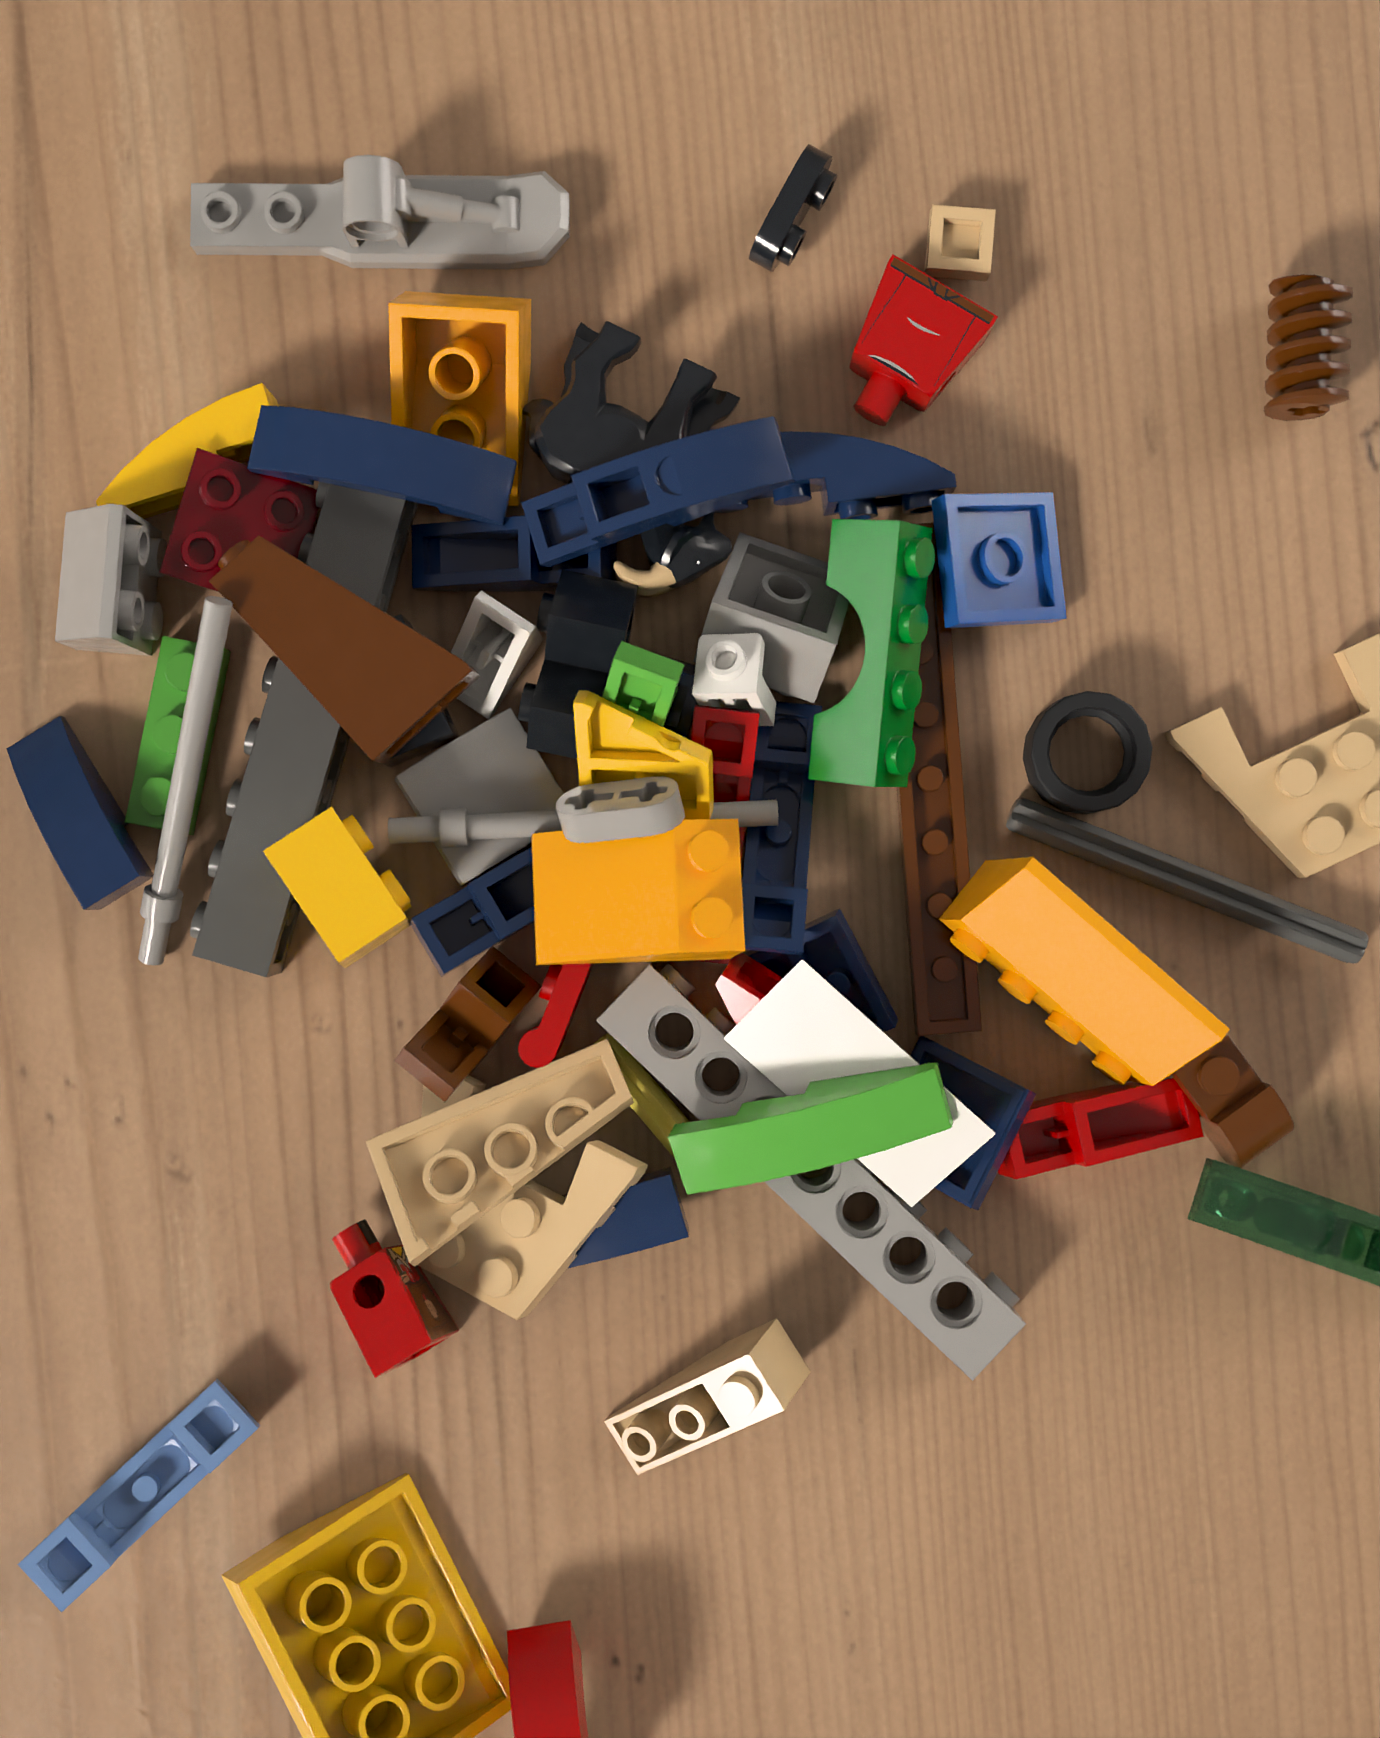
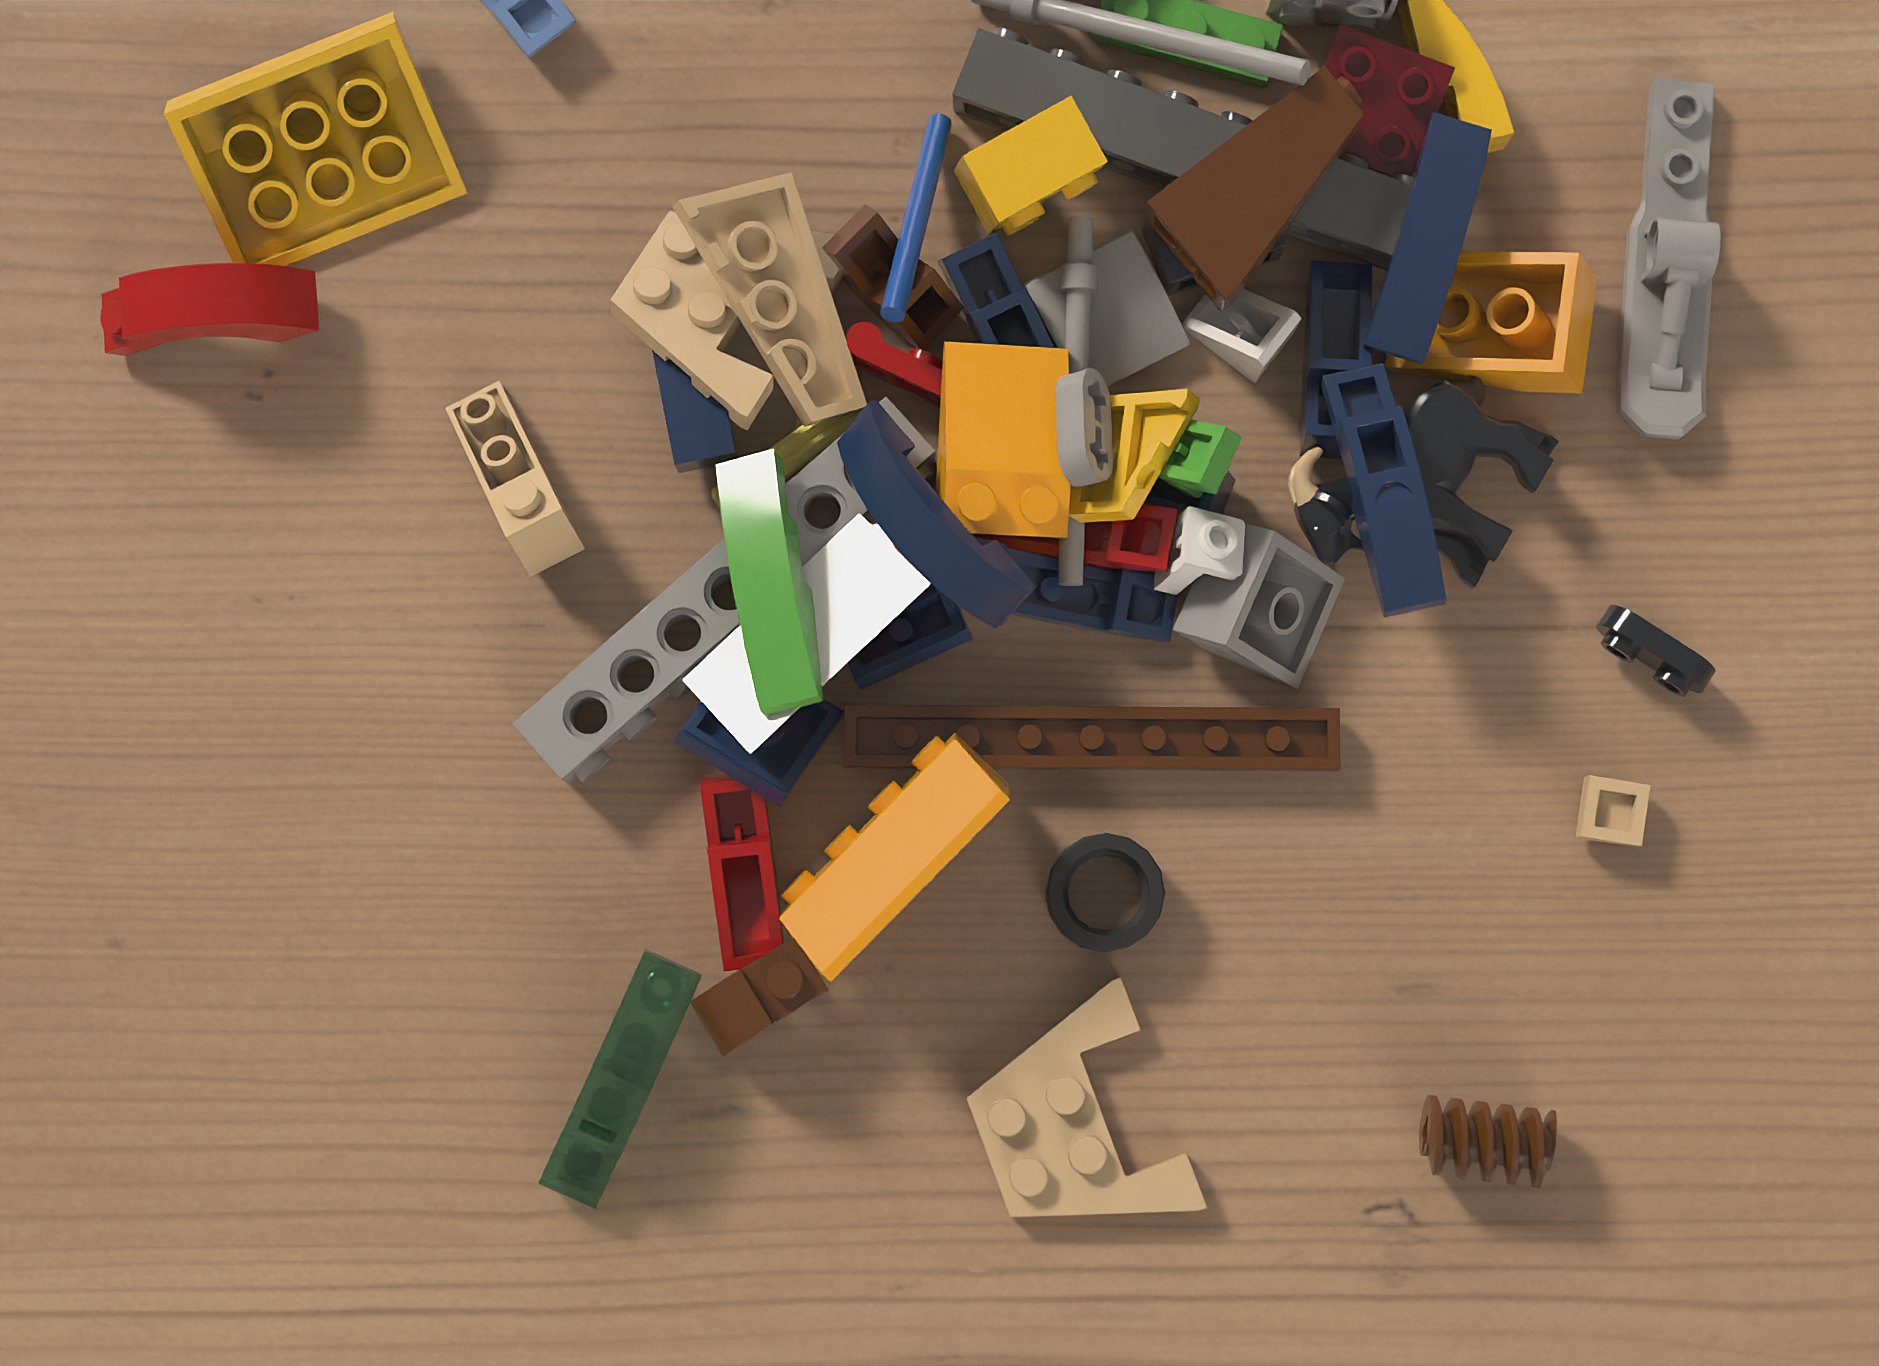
camera: 90 degrees right, 5 degrees down
(391, 1326) = (635, 184): red torso -> none
(404, 1004) = (916, 218): none -> blue bar
(583, 634) = (1262, 409): black brick -> none
(738, 974) = (923, 526): none -> dark blue slope
(856, 477) = (1389, 686): dark blue slope -> none
(885, 578) = (1283, 701): arch -> none
(914, 341) = (1517, 756): red torso -> none
(998, 559) = (1299, 819): blue plate -> none
(1187, 881) = (972, 983): dark grey axle -> none

